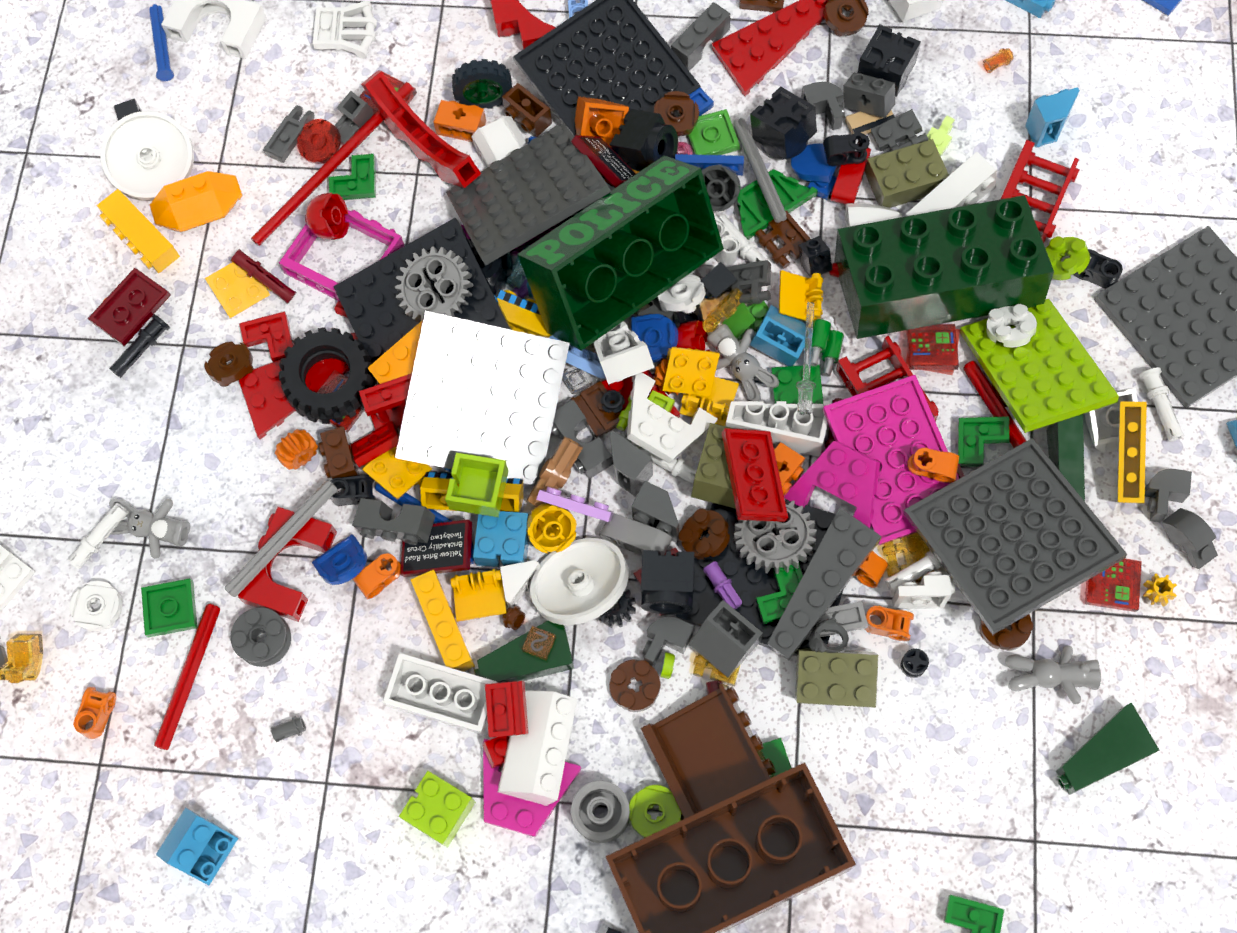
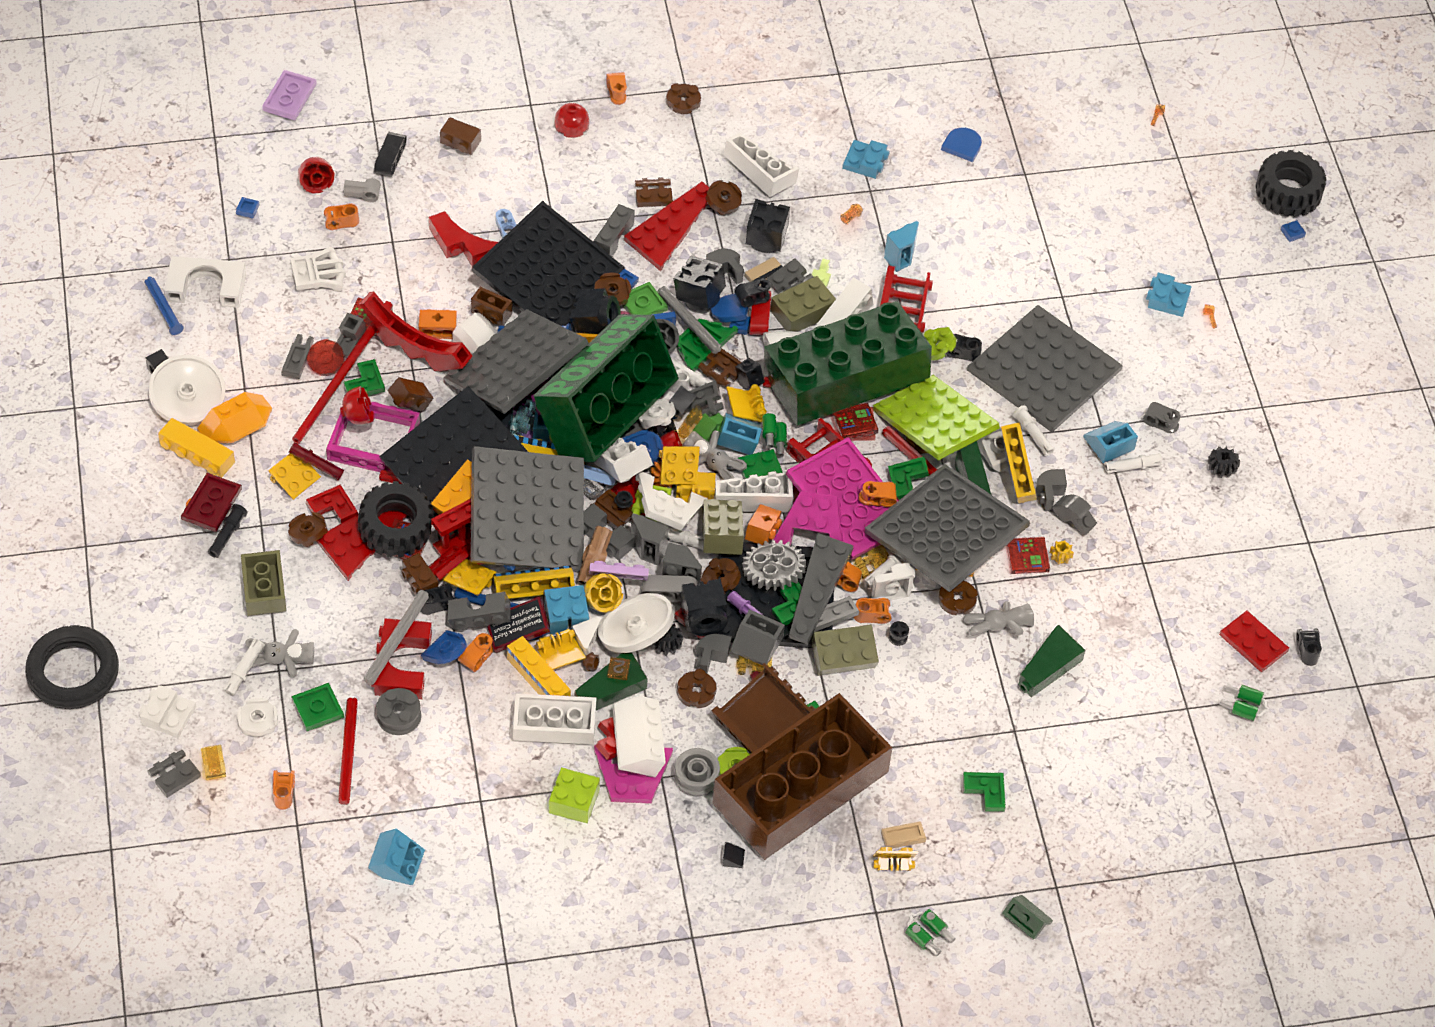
camera: 25 degrees left, 15 degrees down
(154, 426) = (263, 582): none -> olive brick
(288, 729) = (440, 769): dark grey pin -> none
(296, 449) = (384, 577): orange gear -> none
(397, 209) = (410, 394): none -> reddish brown brick
(452, 273) = (480, 425): light grey gear -> none
(480, 485) = (543, 566): lime piece -> none
(481, 83) = (455, 288): black wheel -> none
(506, 709) = (609, 712): red plate -> none
(599, 118) = (555, 304): orange slope -> none
(604, 159) = (558, 319): tile -> none
(667, 665) = (717, 670): lime tile -> none
(754, 475) = (748, 523): red tile -> none
(805, 386) = (769, 459): clear piece -> none
(817, 645) = (832, 613): dark grey piece -> none
(869, 94) = (759, 252): dark grey brick -> none
(1016, 315) = (910, 394): white plate -> none

